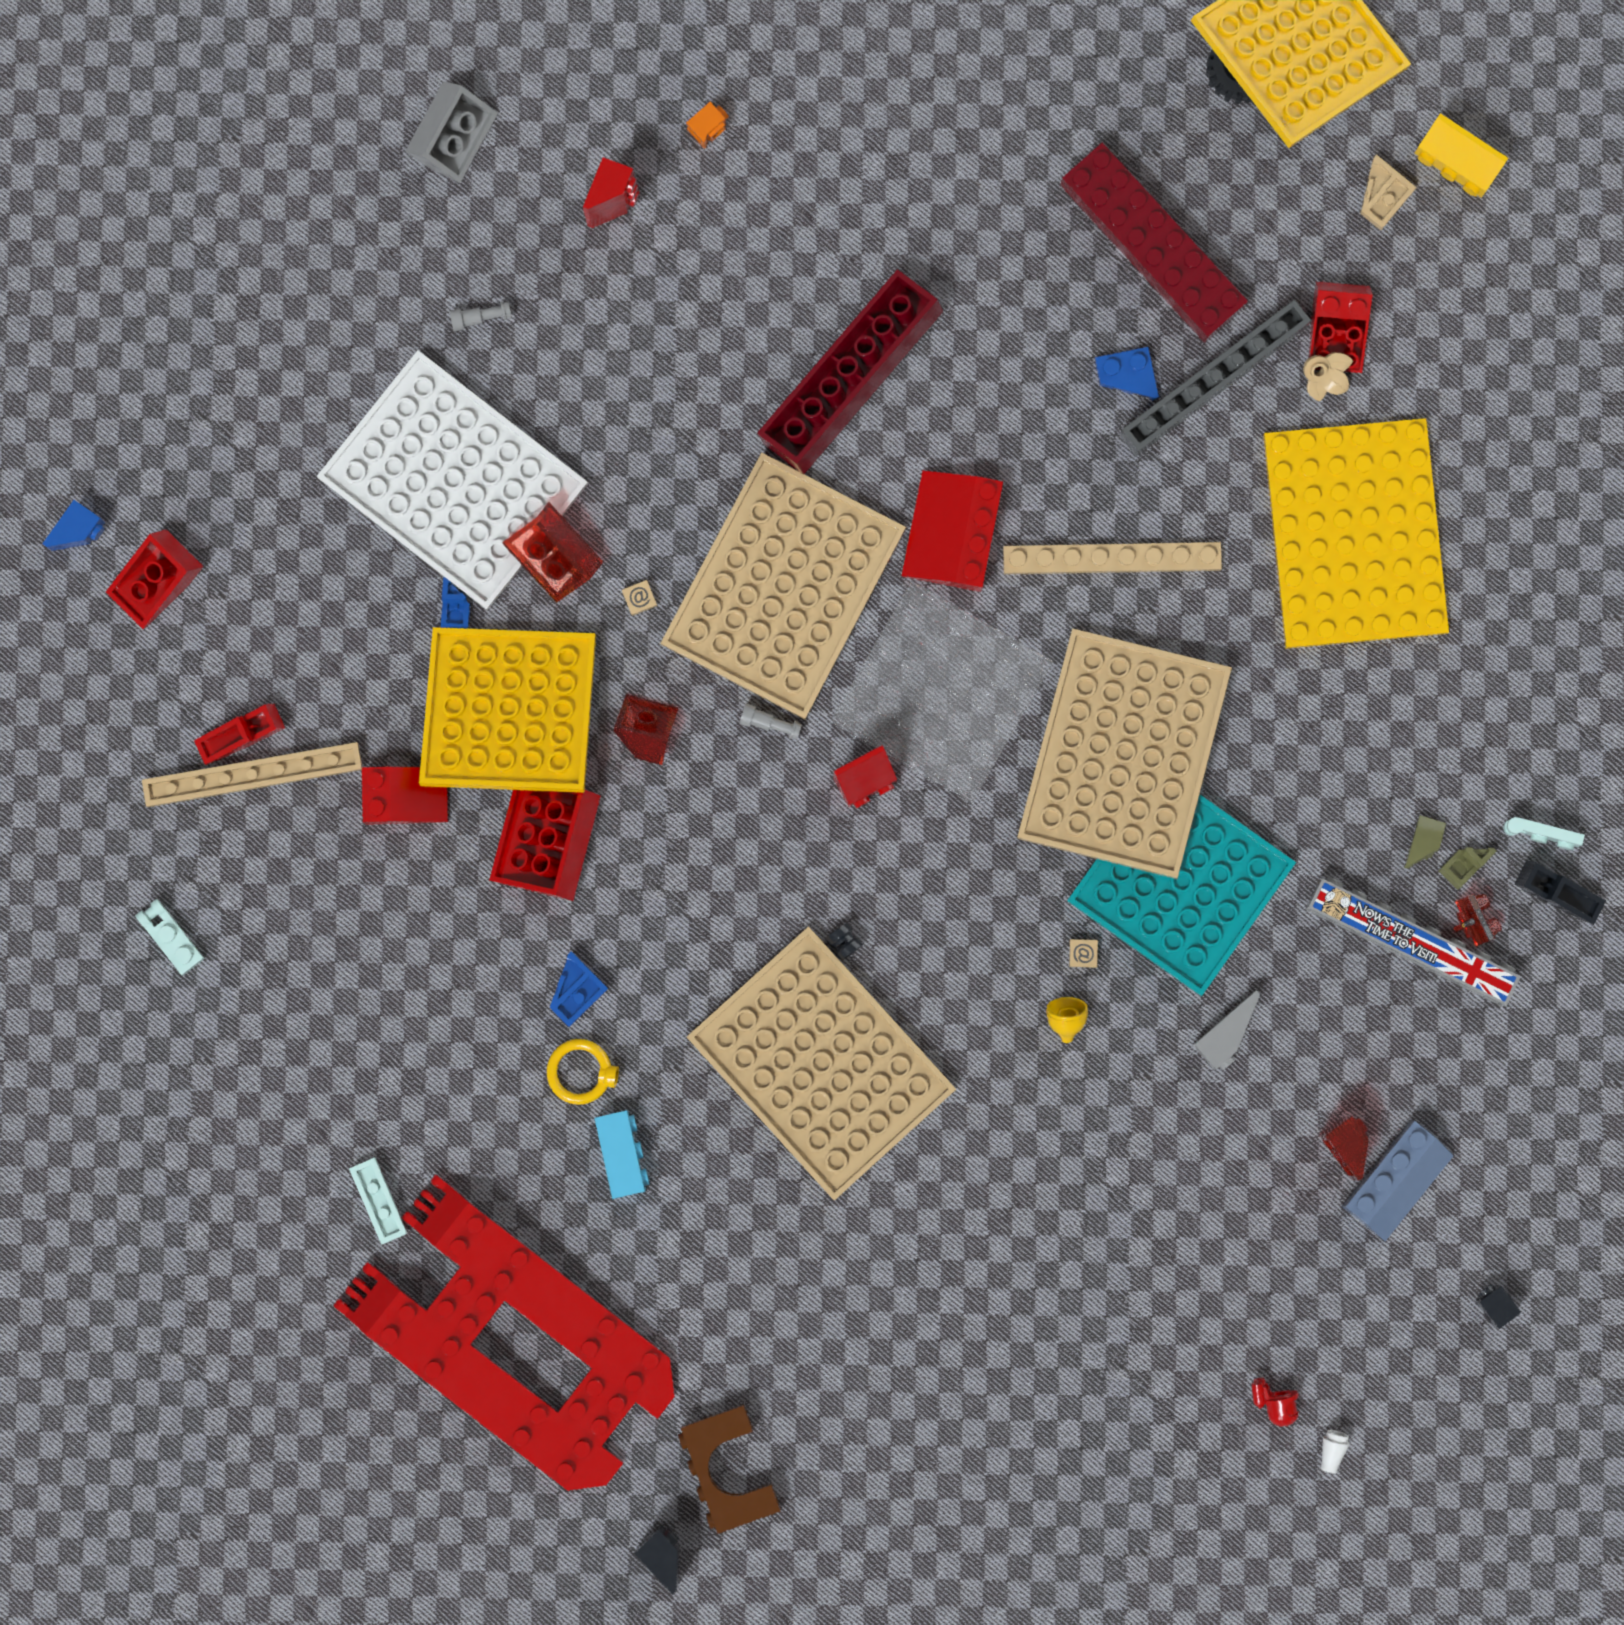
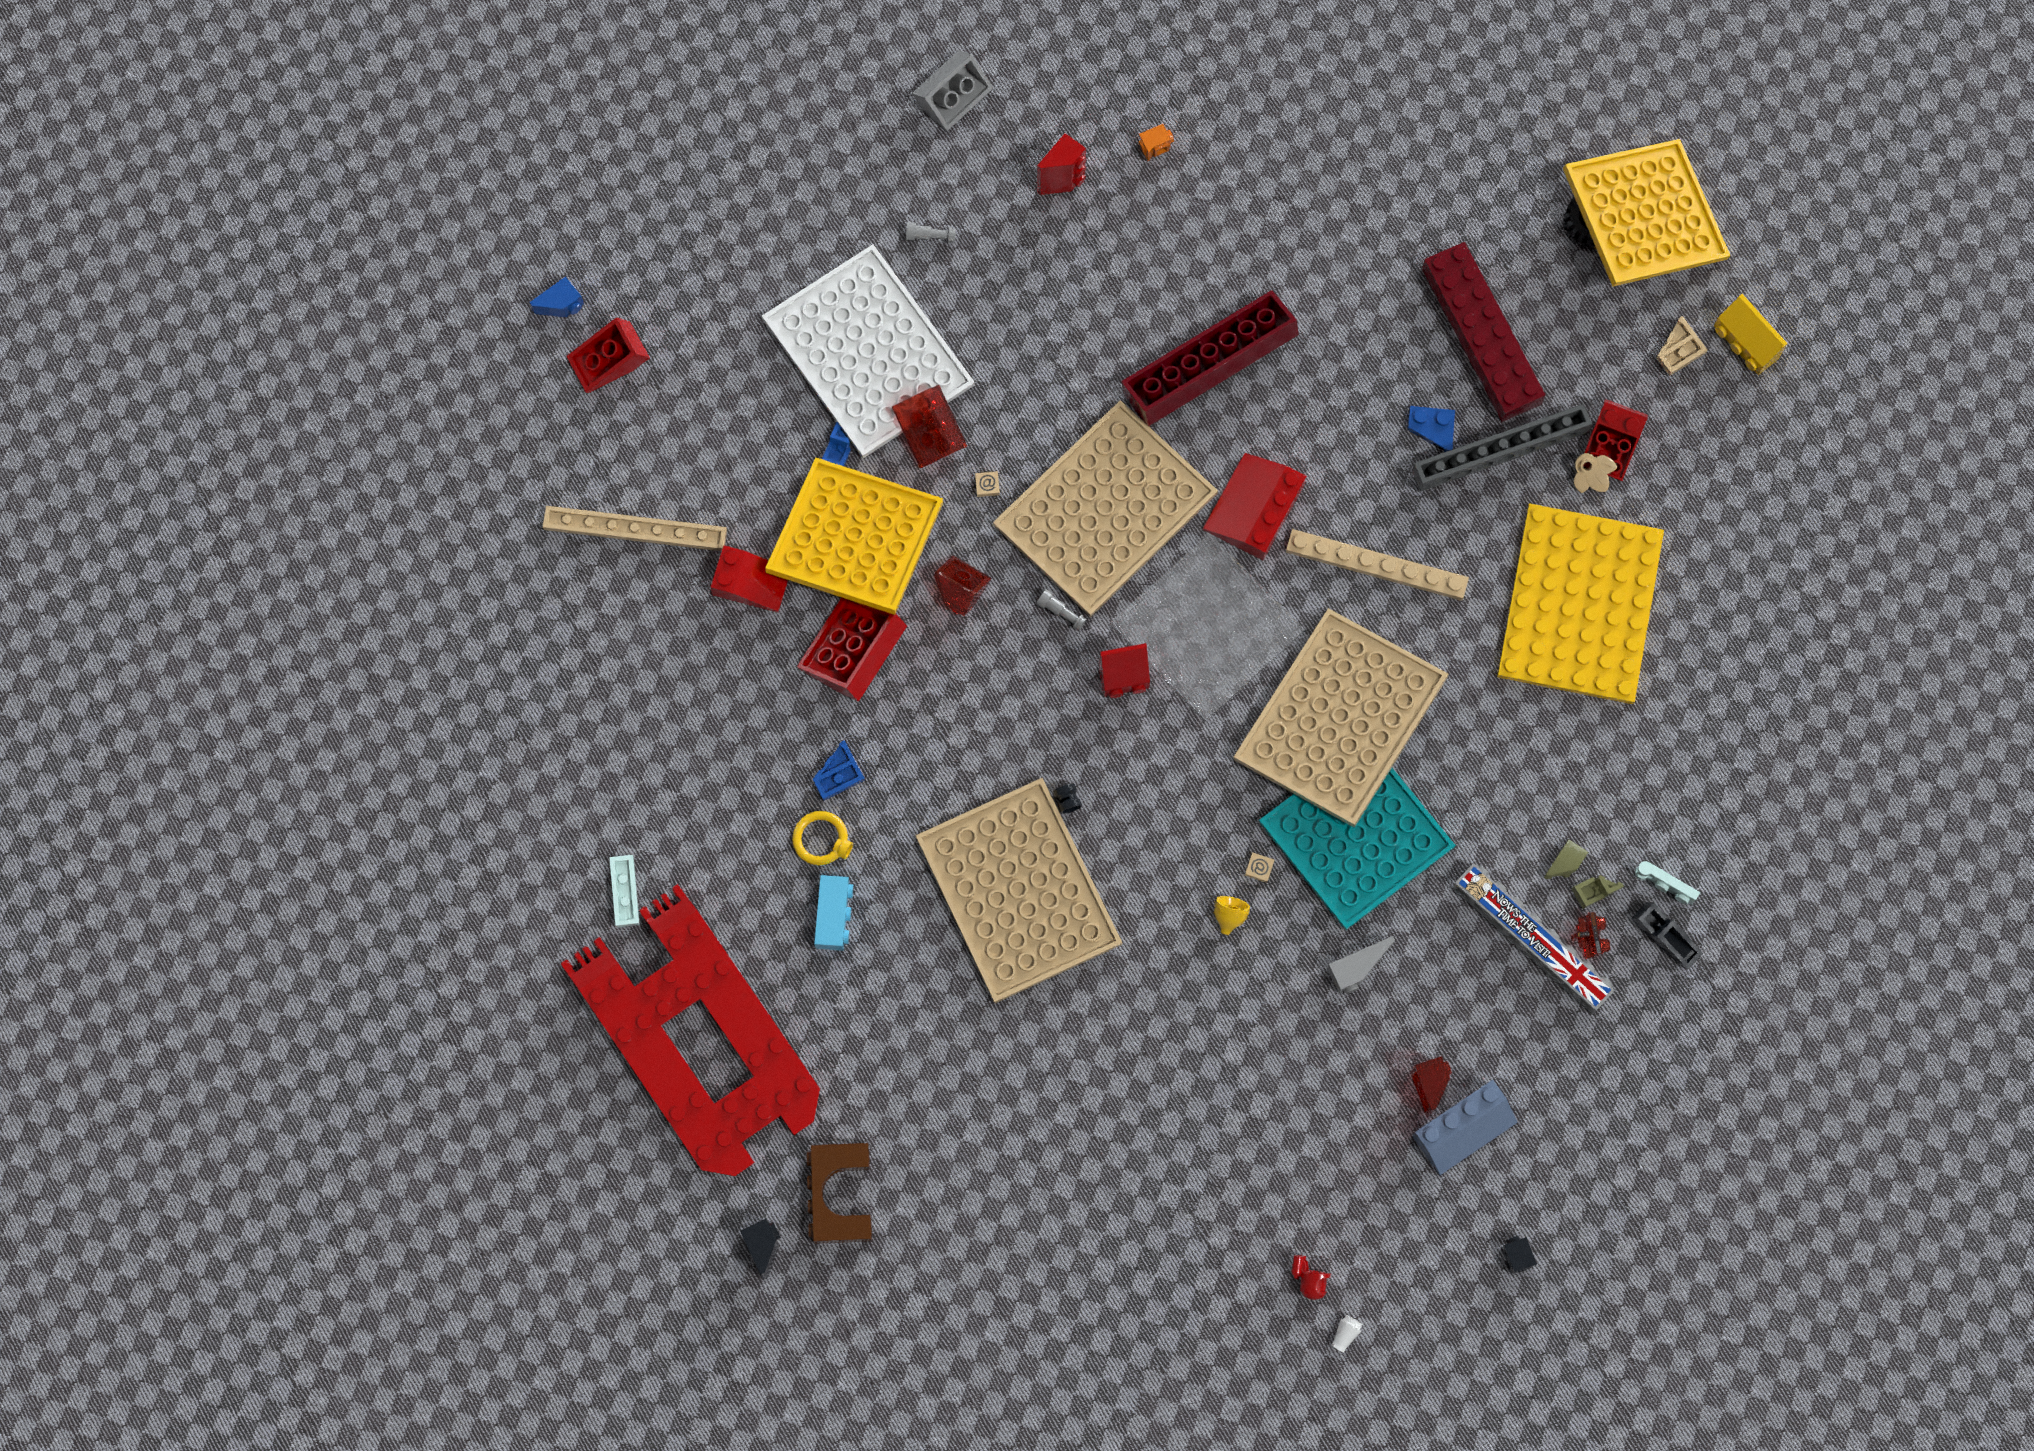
camera: 15 degrees right, 10 degrees down
(170, 938) = (527, 636): light aqua plate -> none
(239, 733) = (635, 493): red slope -> none

